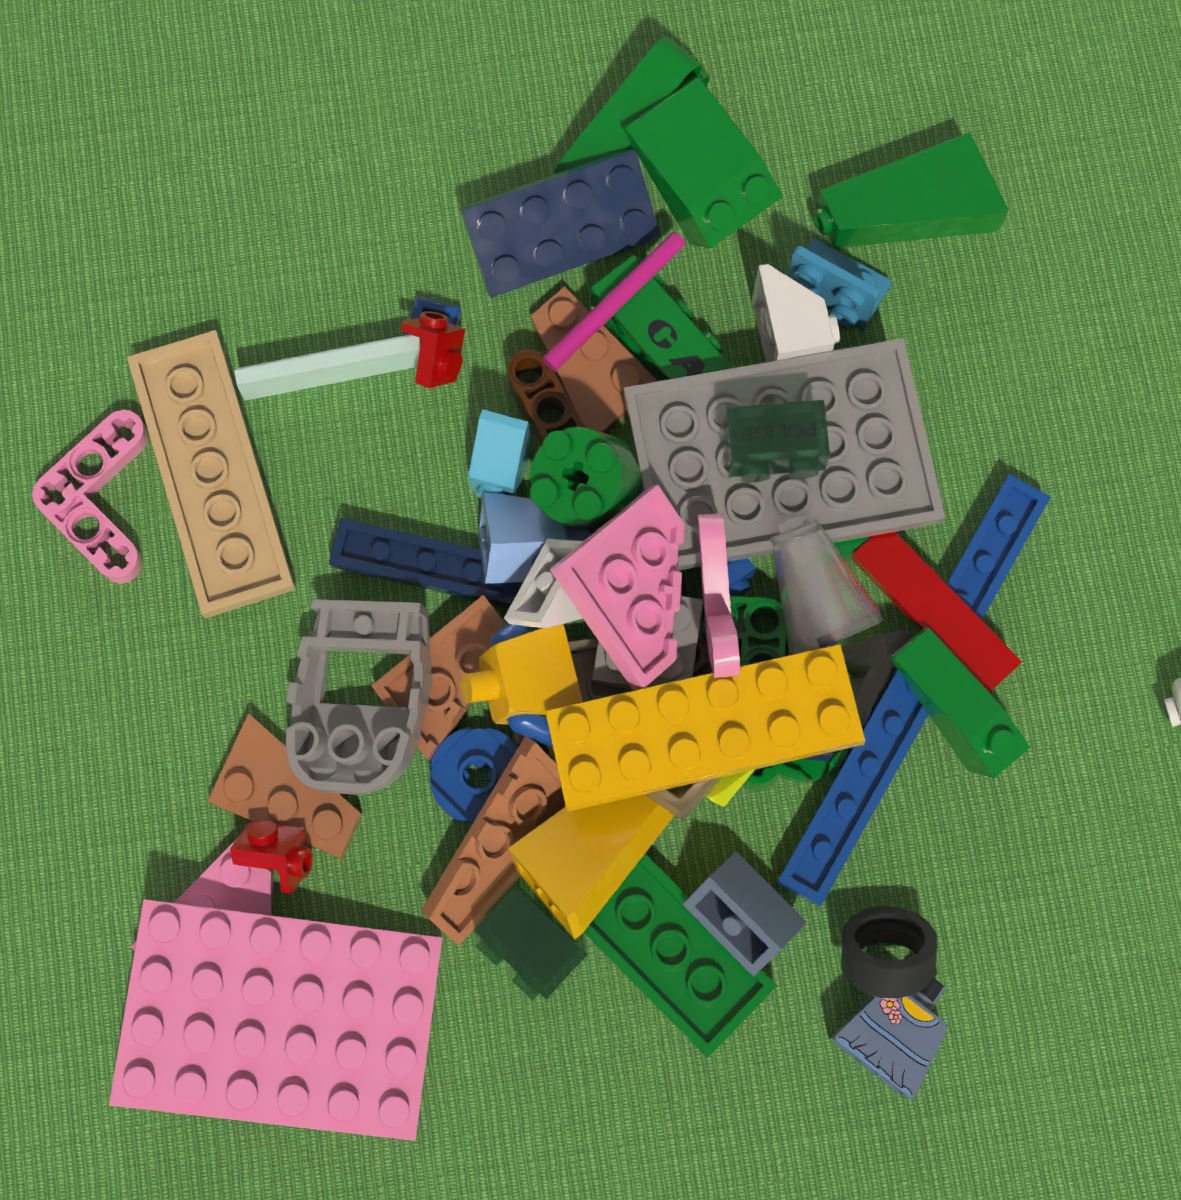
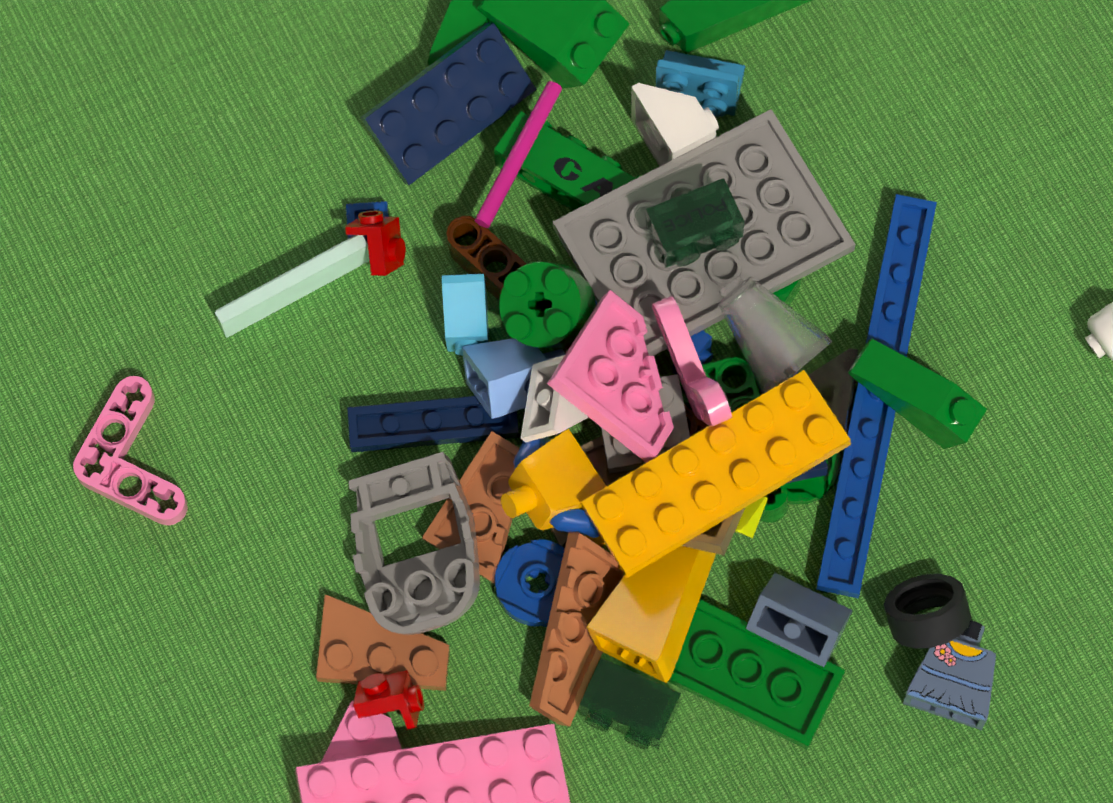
camera: 15 degrees left, 5 degrees down
(210, 474) = (221, 406): tan plate -> none
(597, 370) = (523, 218): nougat wing -> none
(934, 605) = (869, 319): red tile -> none

